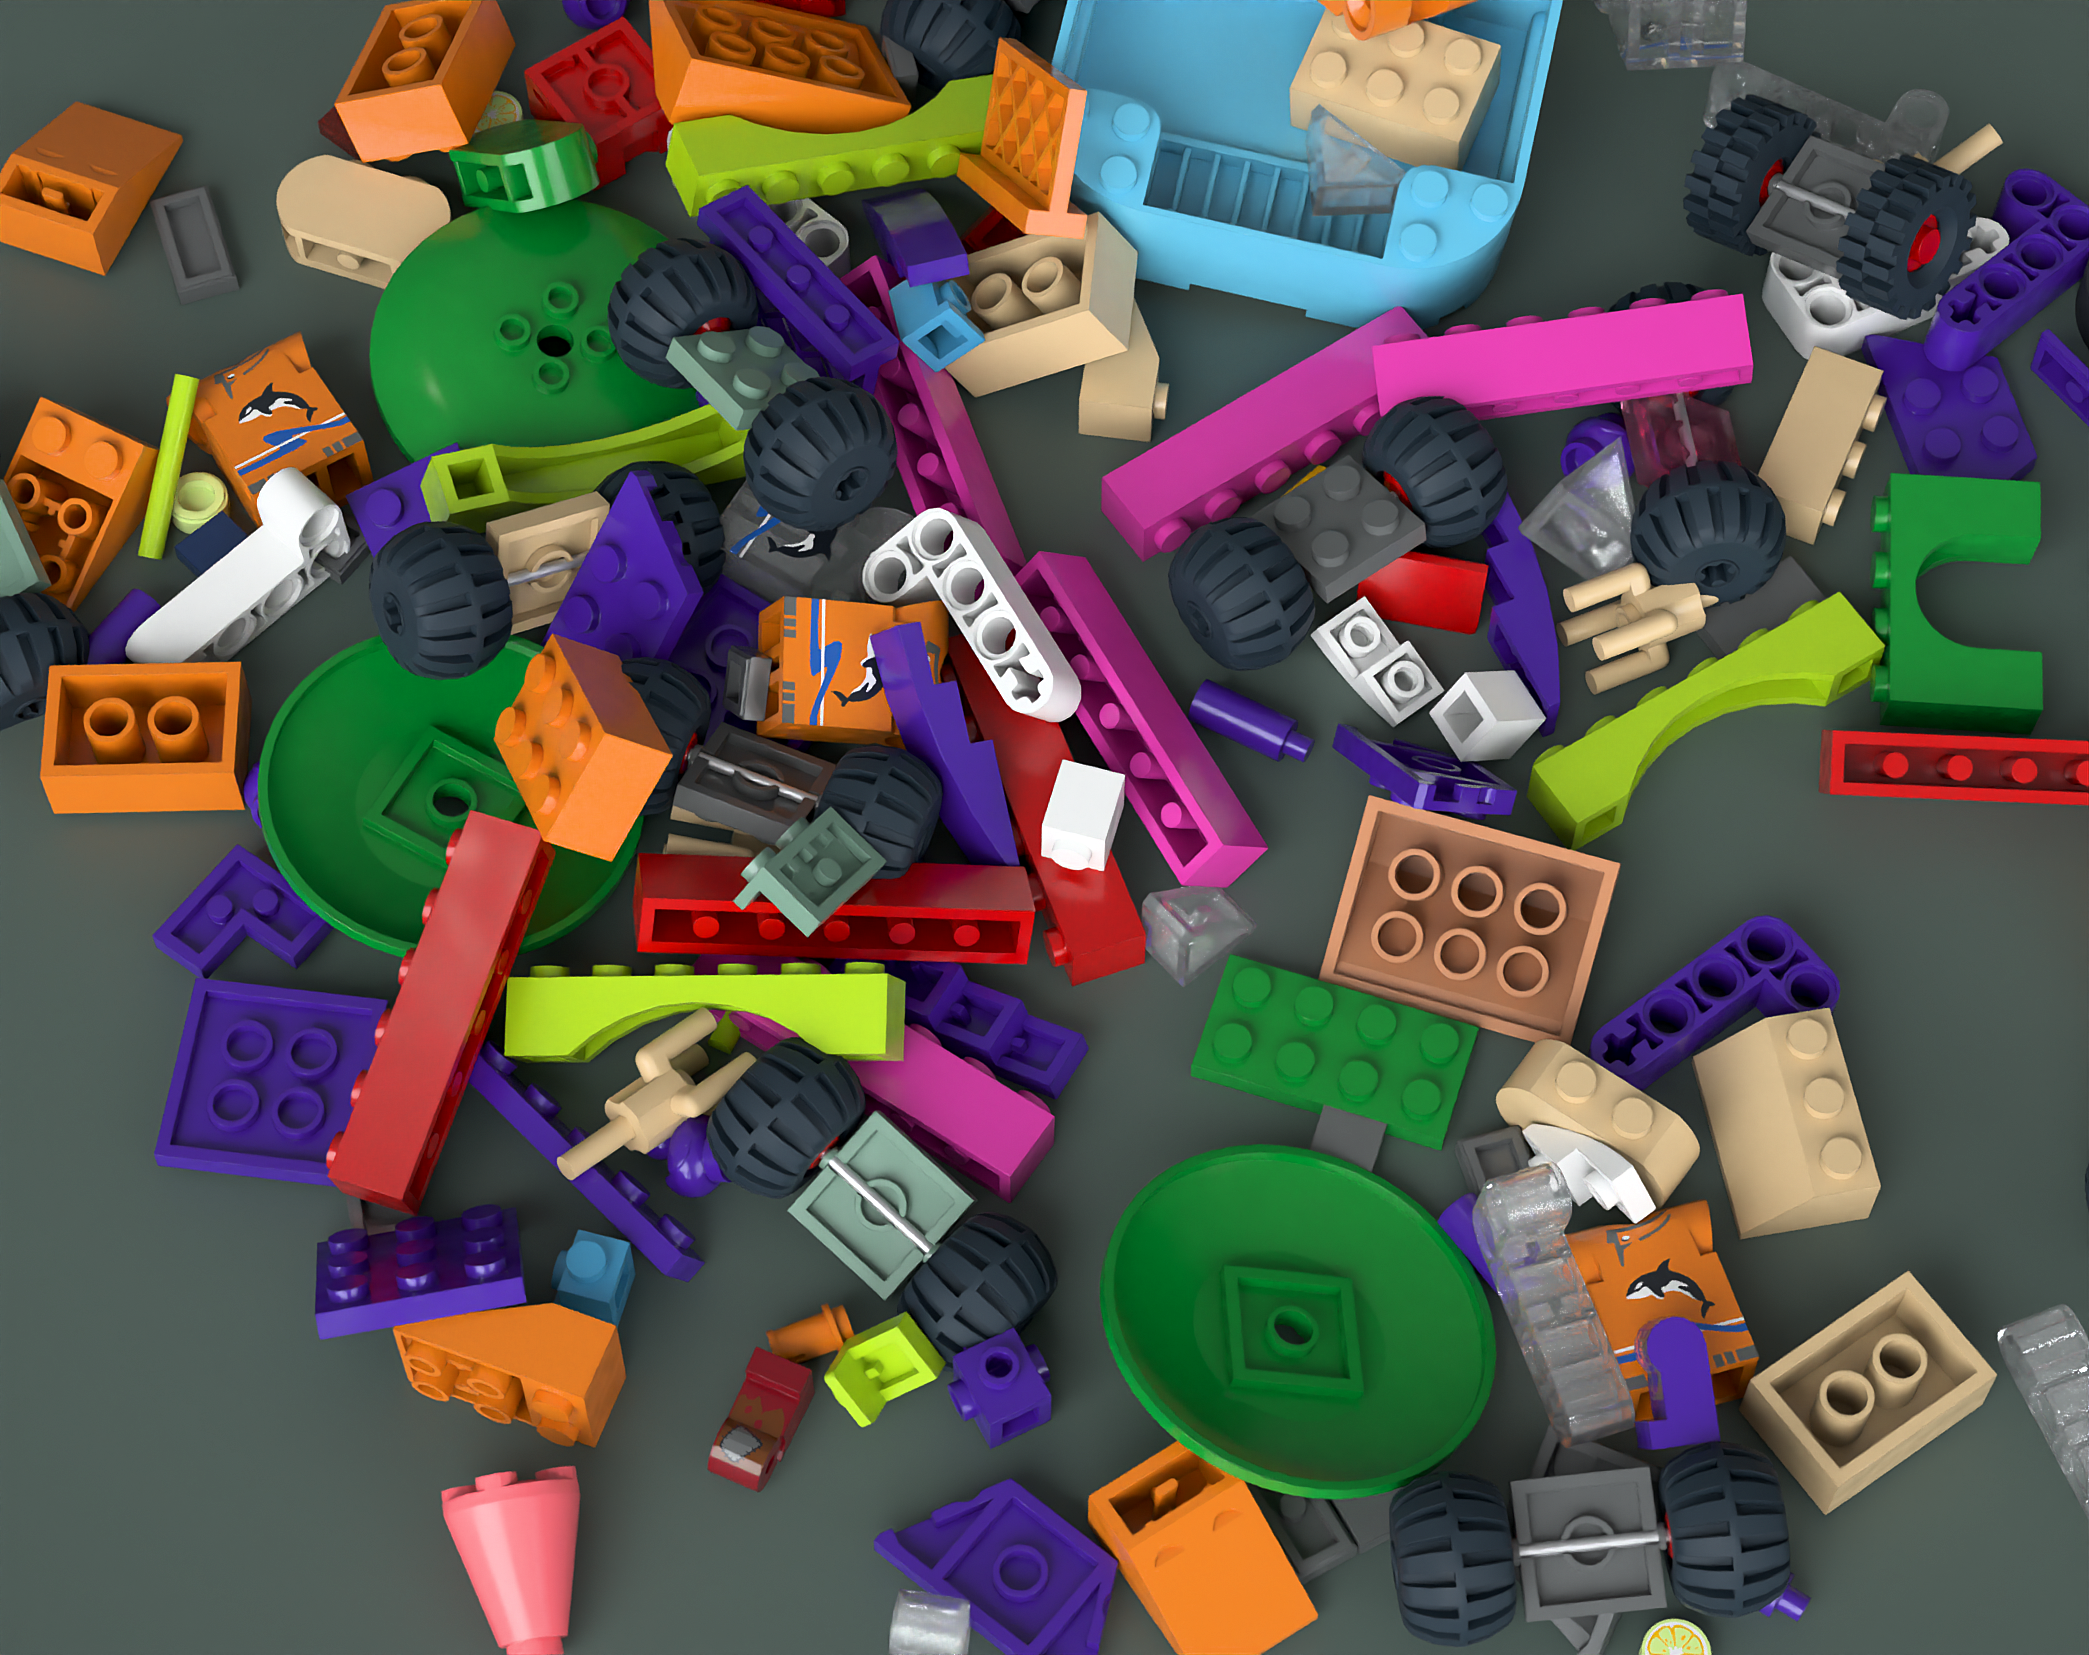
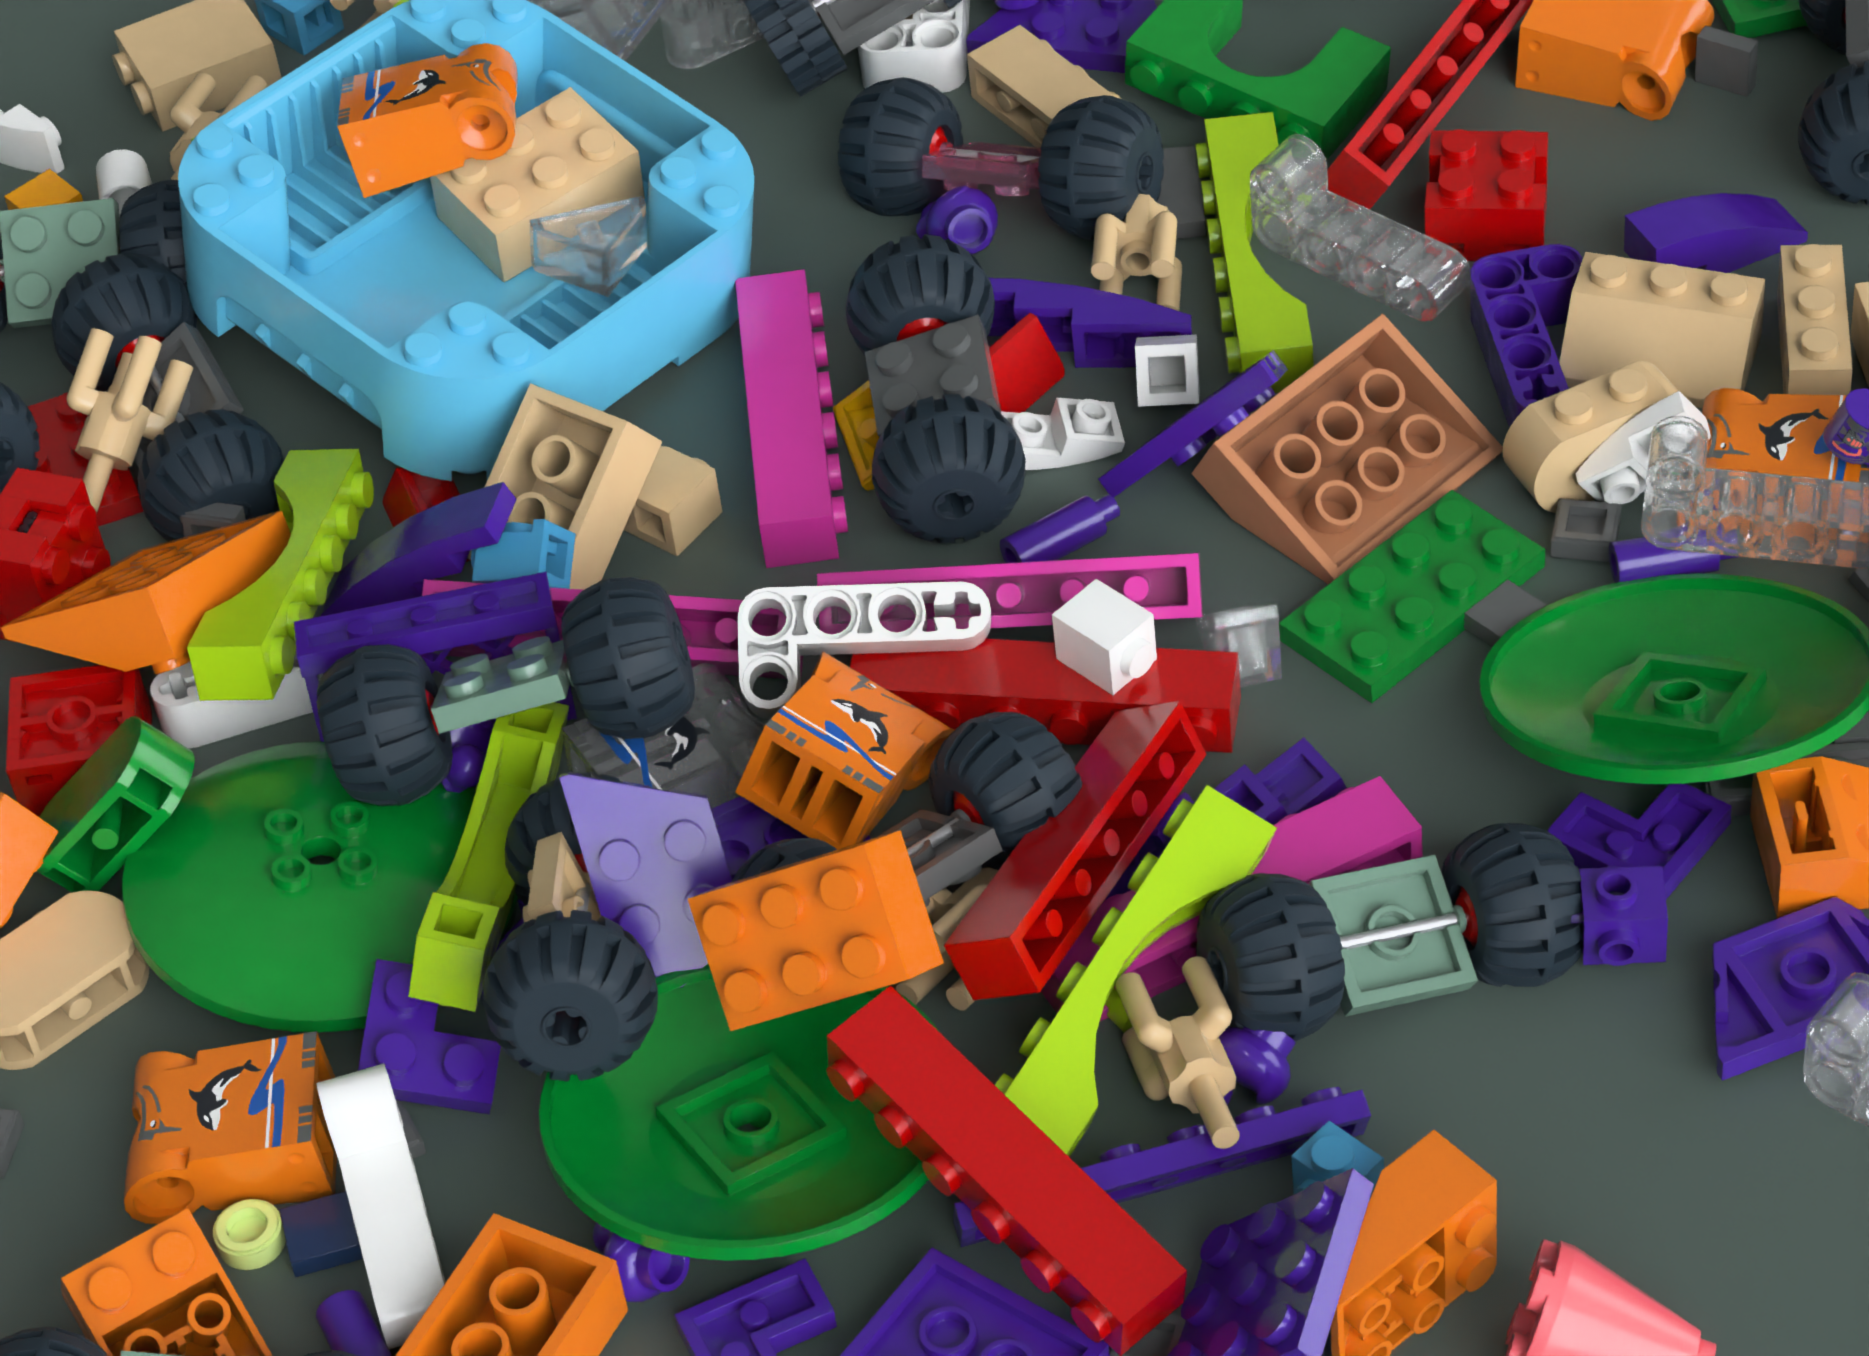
camera: 55 degrees left, 15 degrees down
(168, 466) = (210, 1219): lime bar -> none
(747, 683) = (799, 817): dark grey tile -> none
(761, 1420) = (1549, 1110): dark red leg -> none
(812, 1335) = (1485, 1034): orange pin -> none
(813, 872) = (1051, 806): sand green bracket -> none
(882, 1366) = (1552, 988): lime bracket -> none
(936, 733) = (940, 696): dark purple slope -> none
(1029, 144) = (458, 435): orange fence -> none
(1088, 1377) = (1668, 834): none -> dark purple plate
(1573, 359) = (891, 172): dark pink brick -> none
(1588, 516) = (1026, 243): clear slope -> none
(1764, 793) = (1347, 241): none -> clear beam
(1848, 1263) = (1813, 320): none -> tan brick
(1893, 889) = (1487, 190): none -> red piece
(1960, 1116) = (1711, 231): none -> dark purple slope

